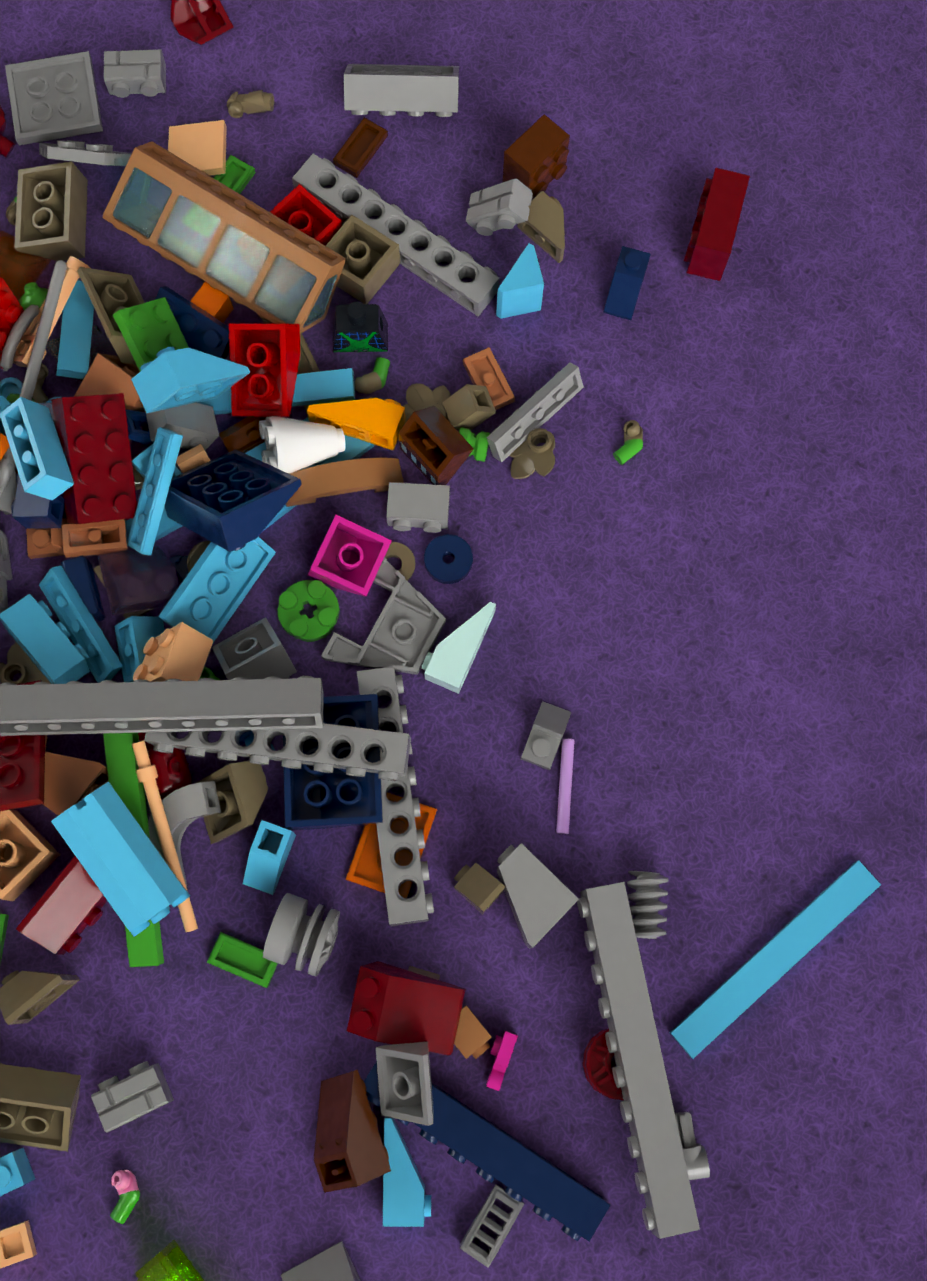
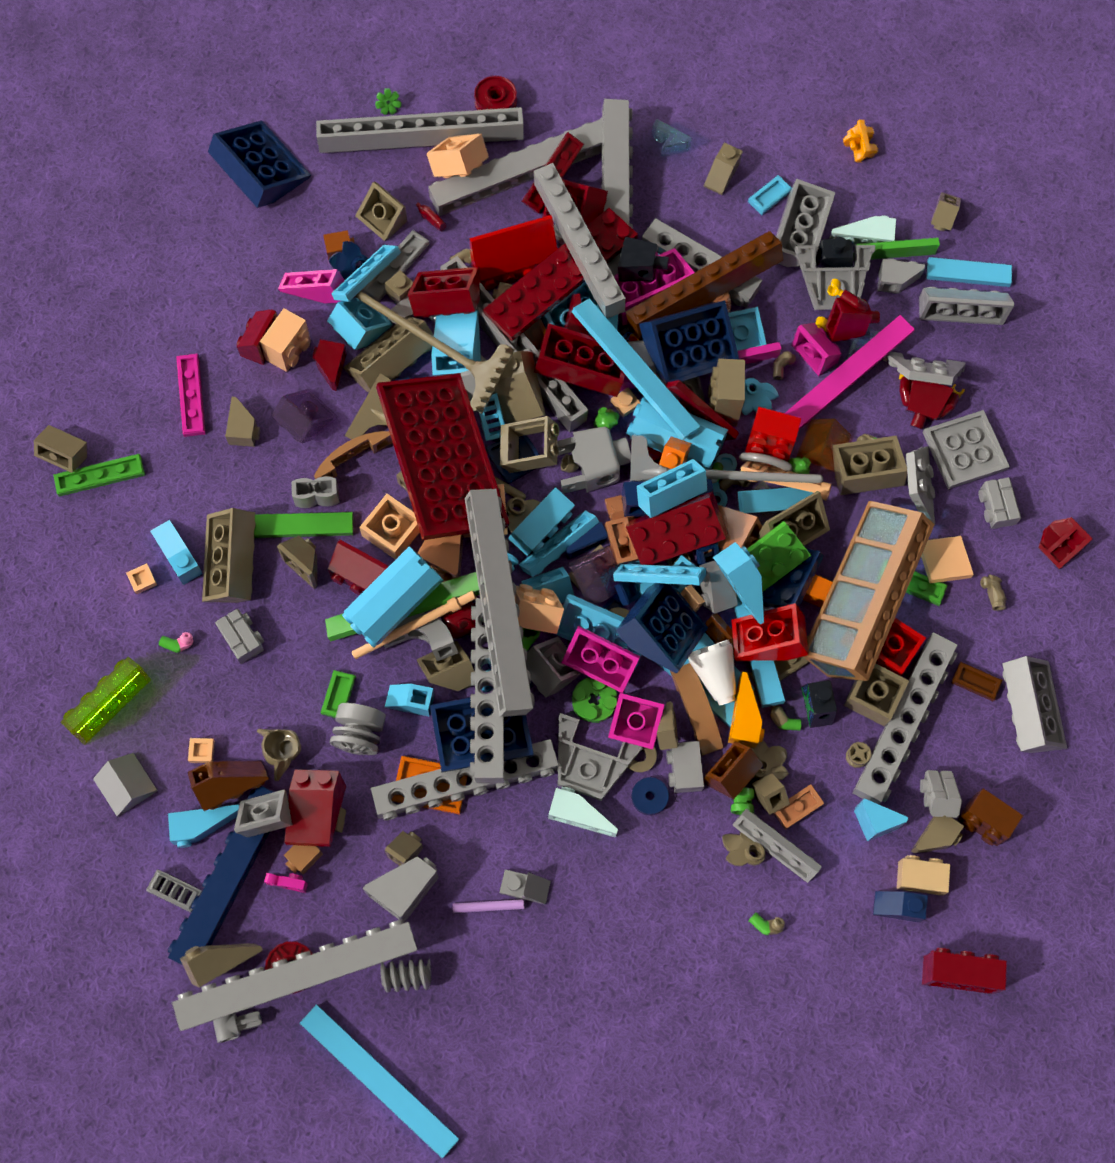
camera: 80 degrees right, 5 degrees down
(169, 544) = (627, 592): none -> dark blue tile
(258, 588) = (600, 659): none -> dark pink slope
(294, 1169) = (201, 750): none -> light nougat plate
(310, 1051) = (279, 749): none -> dark tan piece
(368, 515) = (667, 729): none -> dark tan slope
(434, 291) = (861, 751): none -> dark tan wheel
(594, 251) = (923, 876): none -> tan brick
(602, 1172) = (209, 962): none -> dark tan slope

